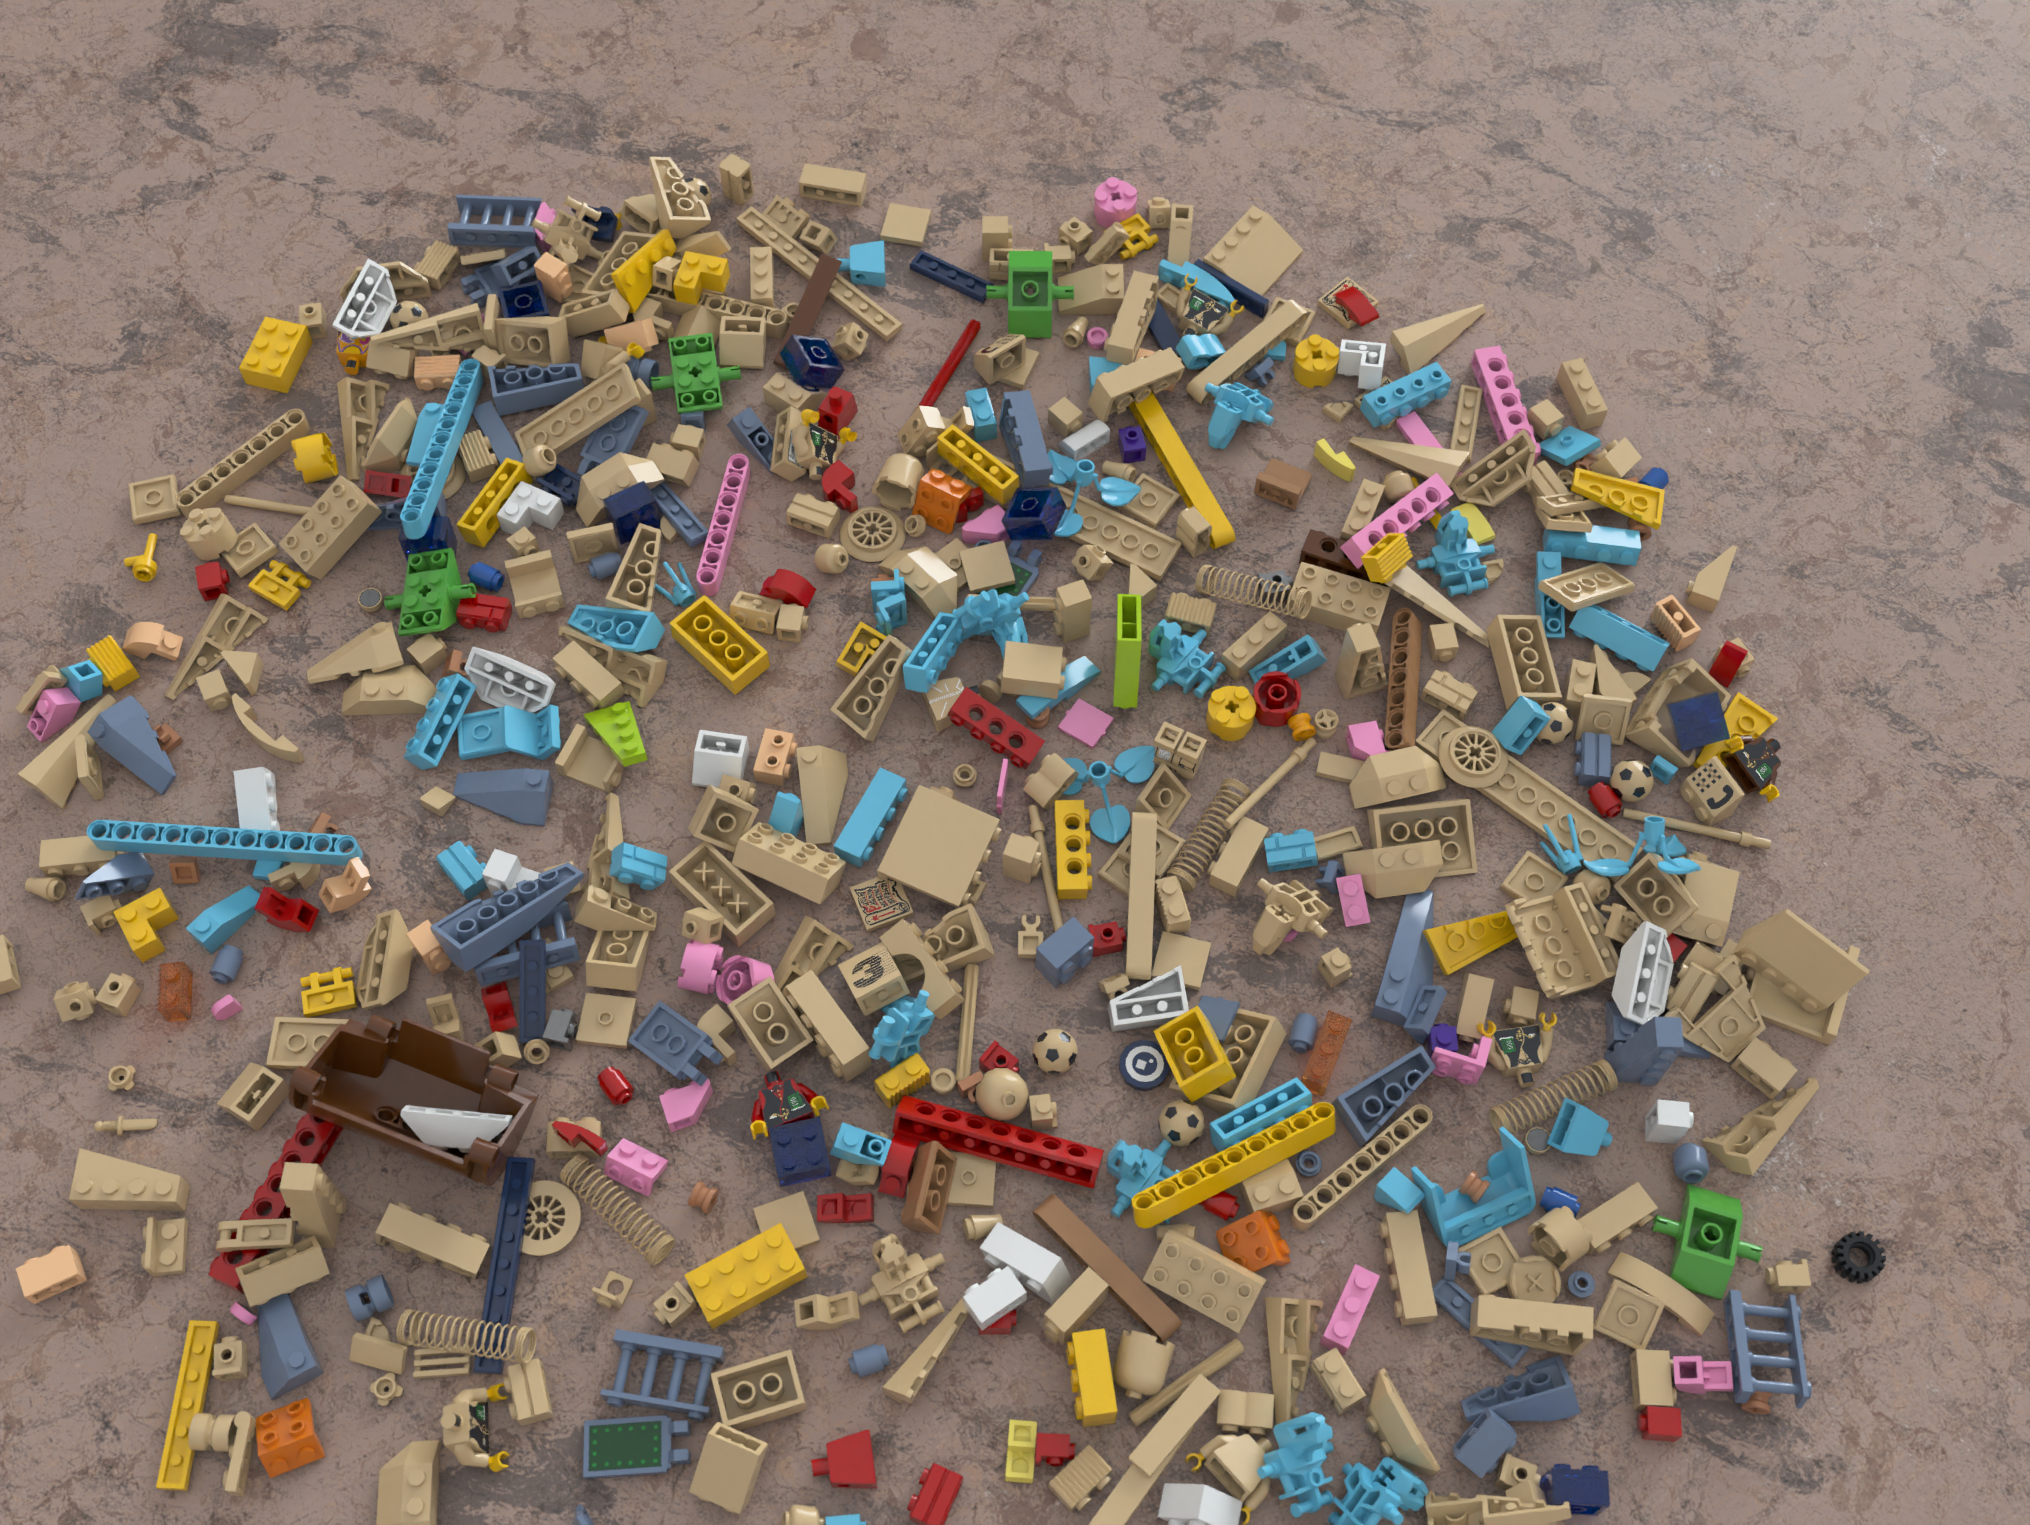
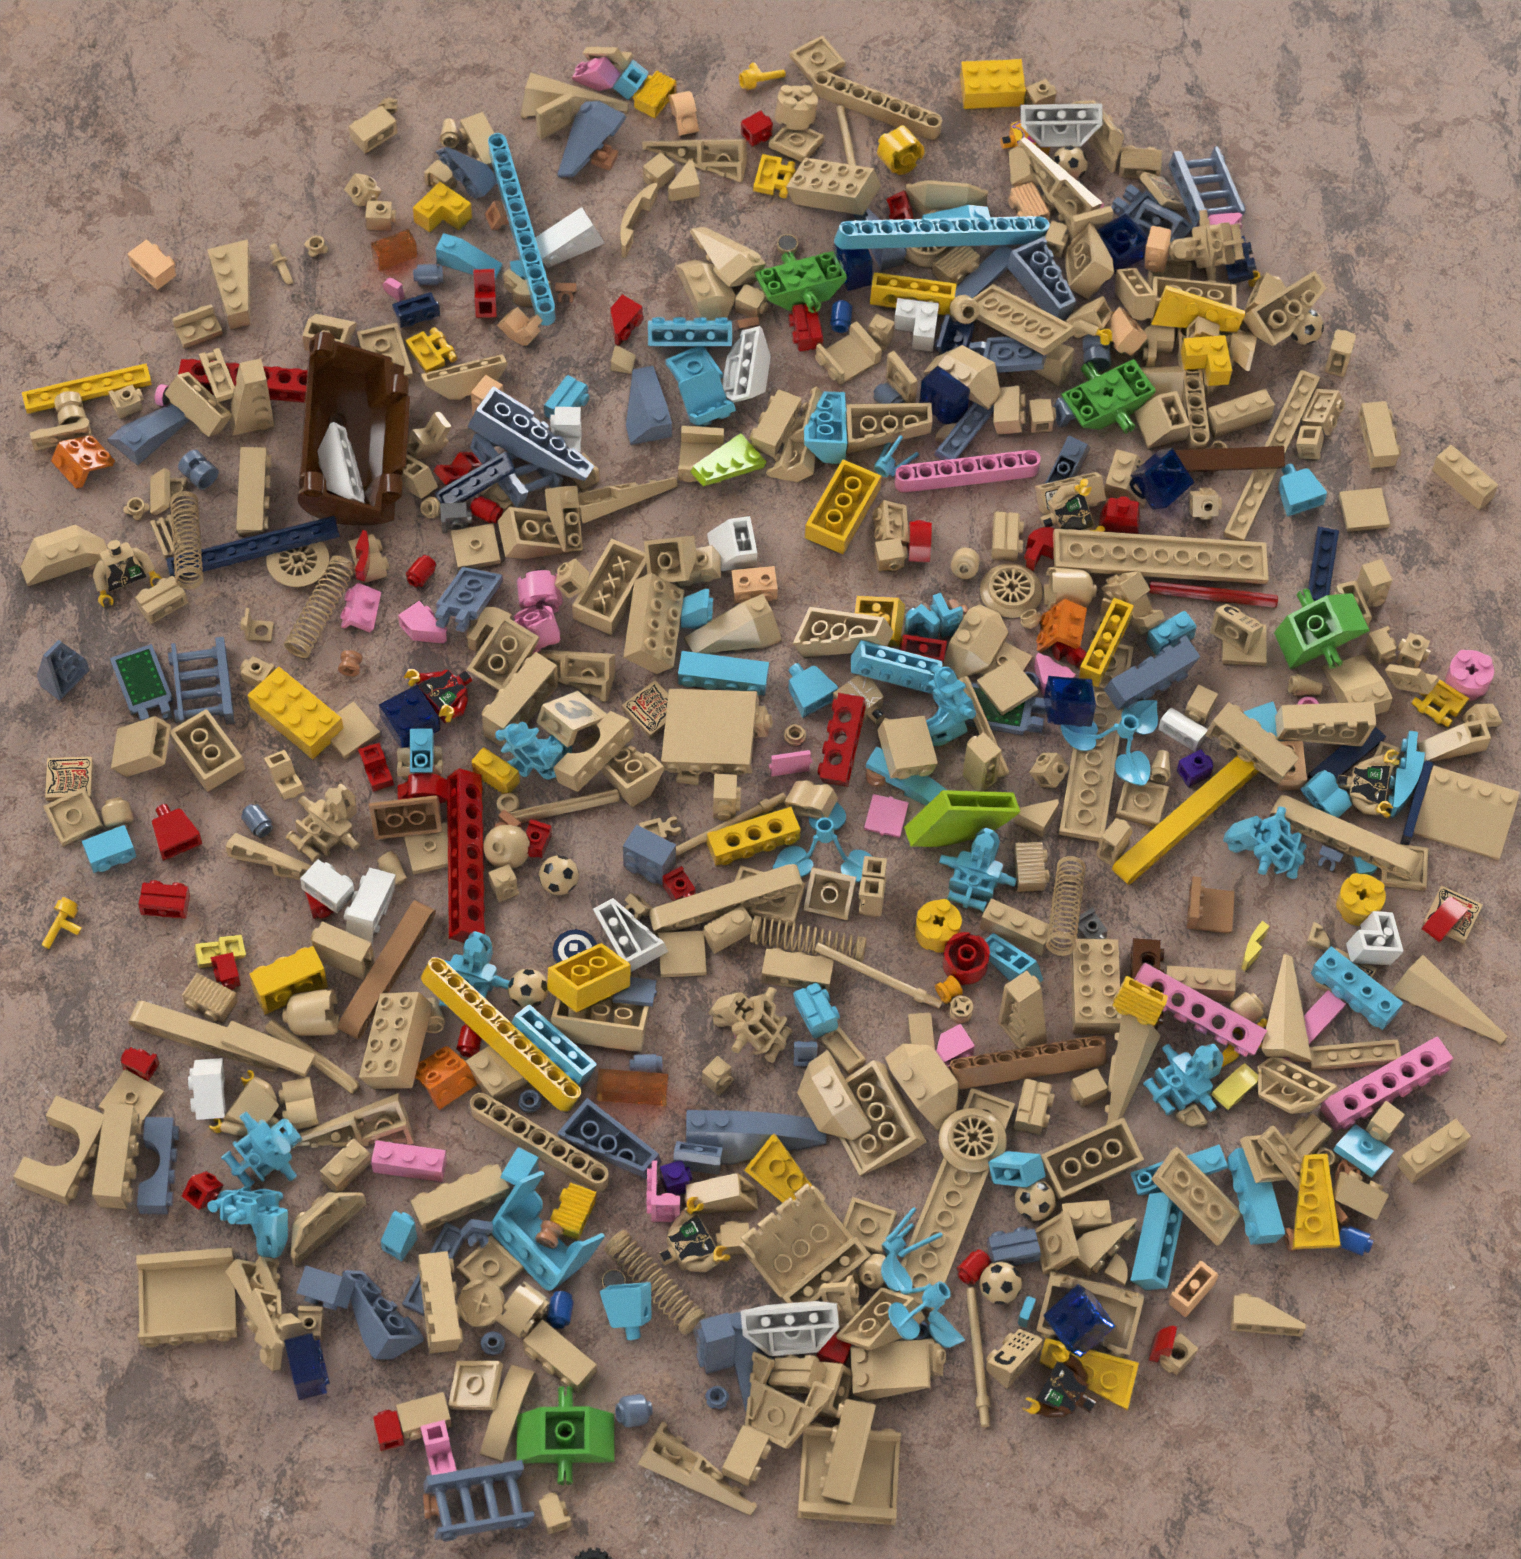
camera: 70 degrees right, 0 degrees up
(267, 991) = (416, 310): none -> dark blue bracket
(359, 414) = (966, 165): tan wedge -> none
(385, 781) = (624, 317): none -> red slope
(566, 993) = (486, 509): none -> red brick
(638, 866) = (611, 517): medium azure brick -> none
(894, 395) = (1161, 556): none -> tan plate
(908, 137) = (1465, 477): none -> tan brick
(917, 623) = (924, 646): none -> red brick
(918, 743) = (810, 689): none -> medium azure torso
(1353, 900) = (787, 1073): bright pink plate -> none
(1439, 1344) = (399, 1235): none -> medium azure slope
(1451, 1155) = (574, 1210): none -> yellow brick
(1668, 1121) = (661, 1378): white brick -> none
(1692, 1073) = (717, 1391): none -> sand blue plate

